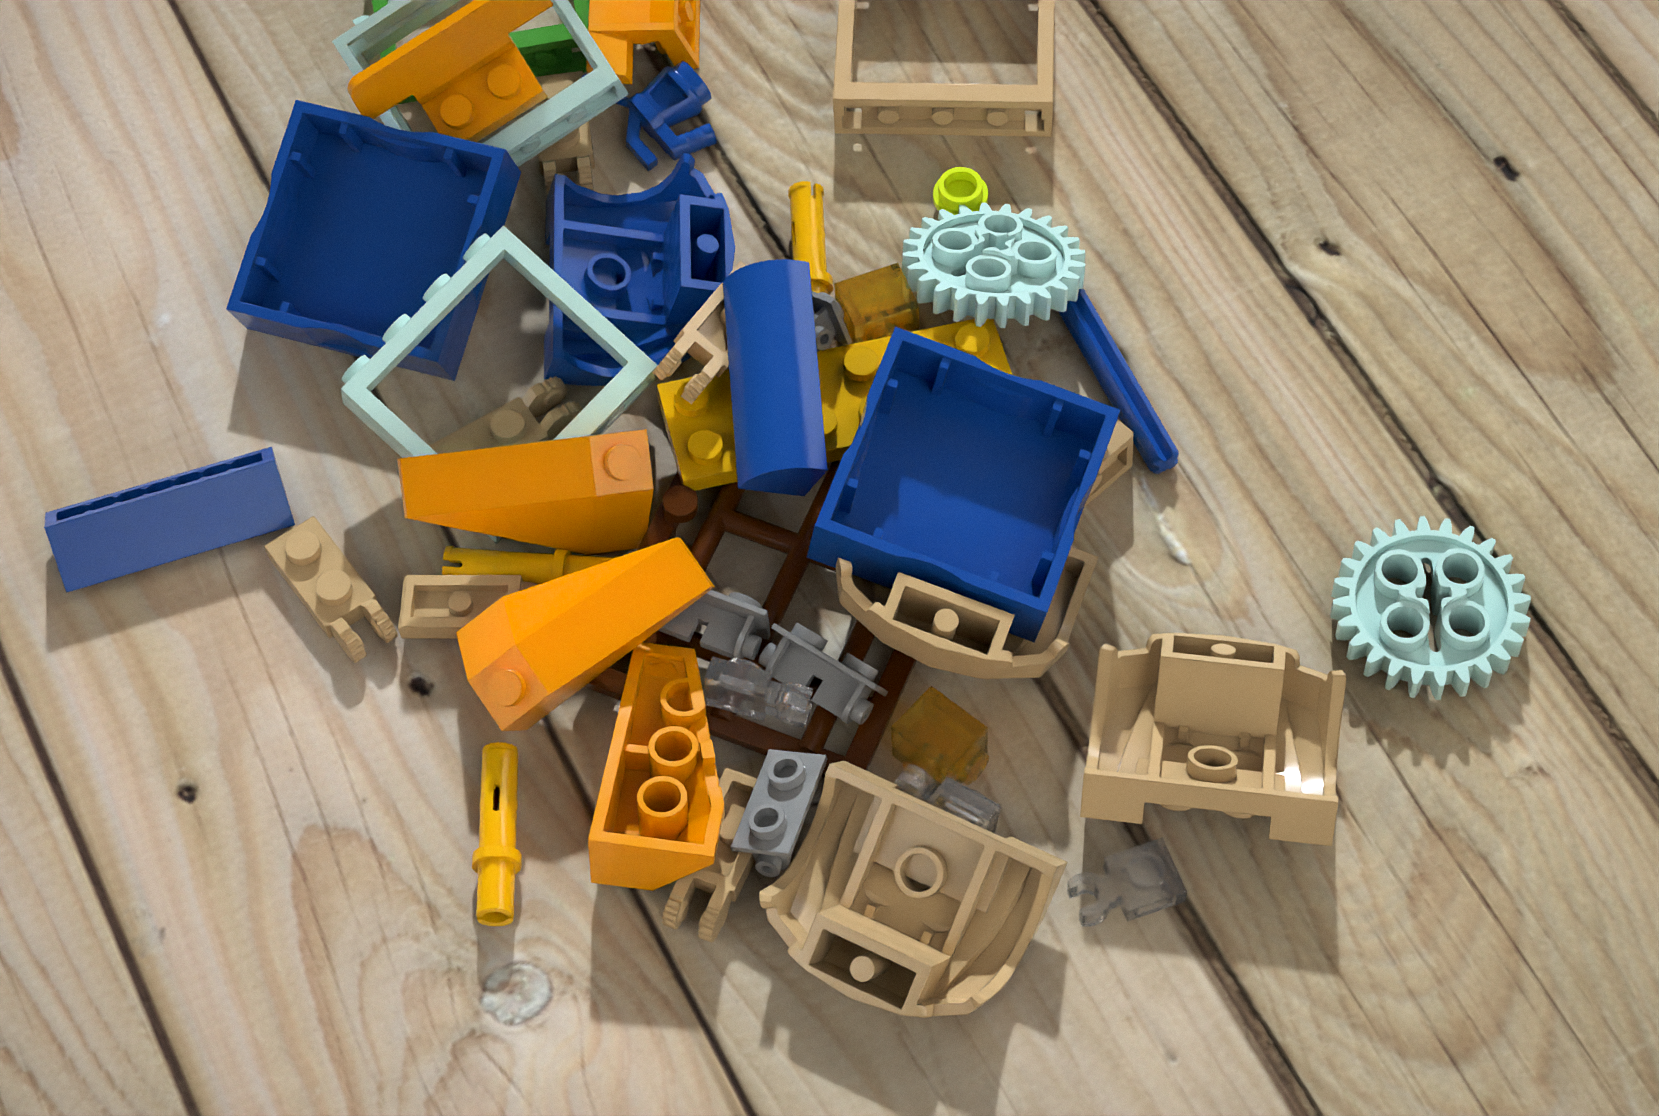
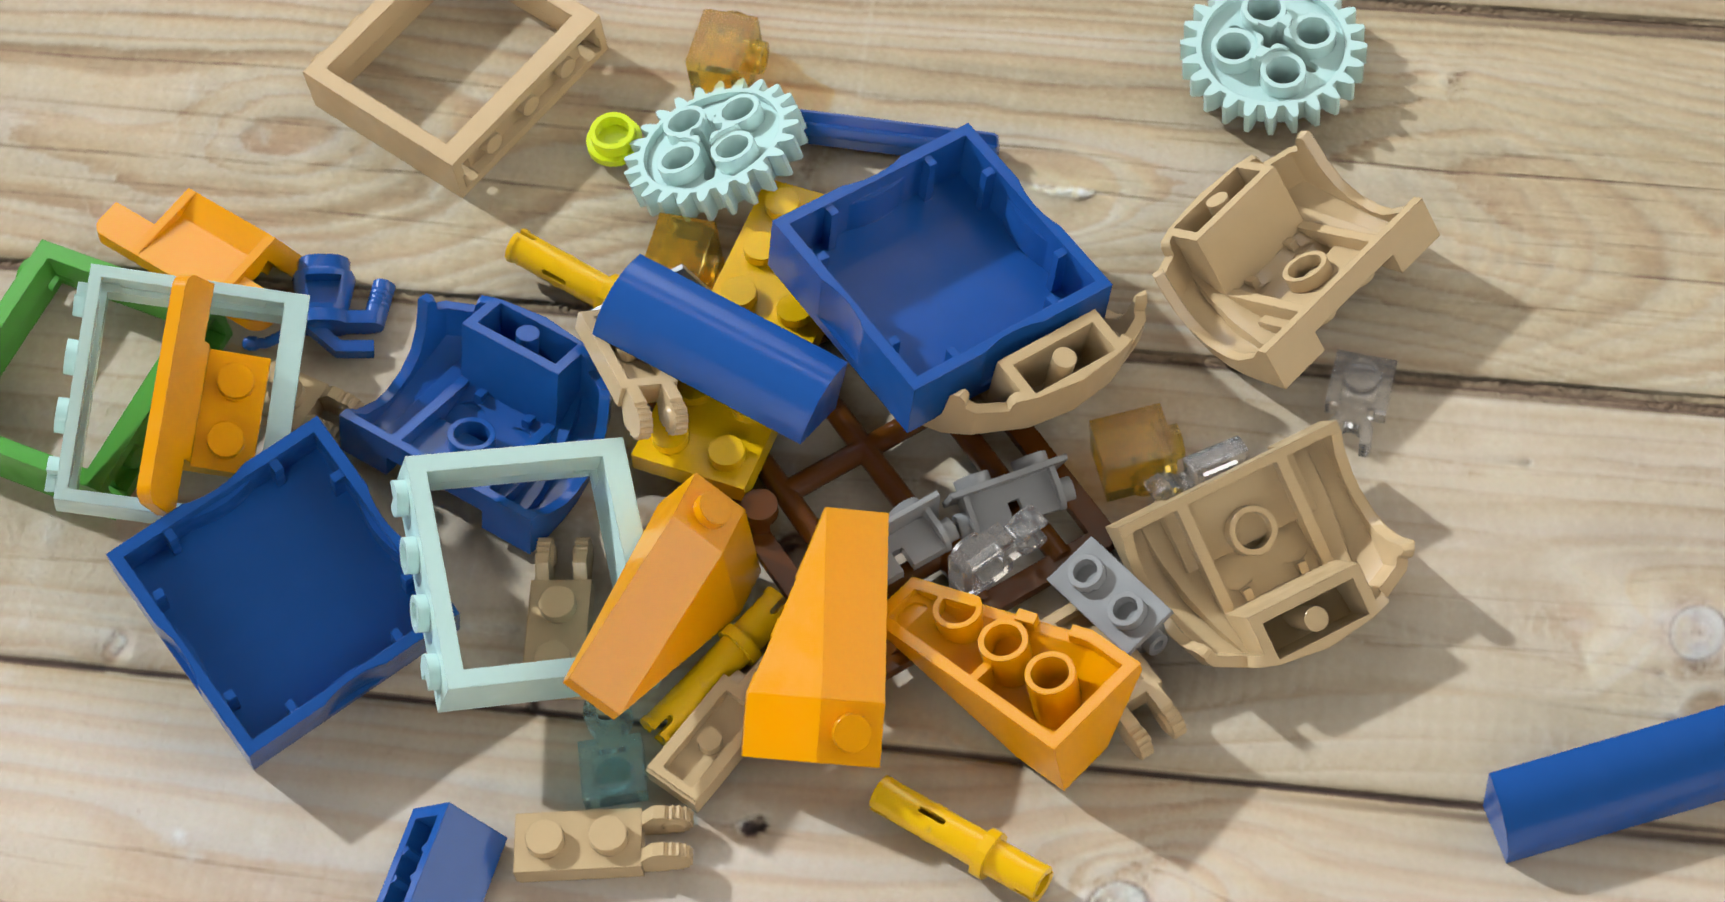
camera: 50 degrees left, 0 degrees up
(401, 551) = (613, 762): none -> clear light blue plate
(1099, 212) = (726, 50): none -> clear yellow brick

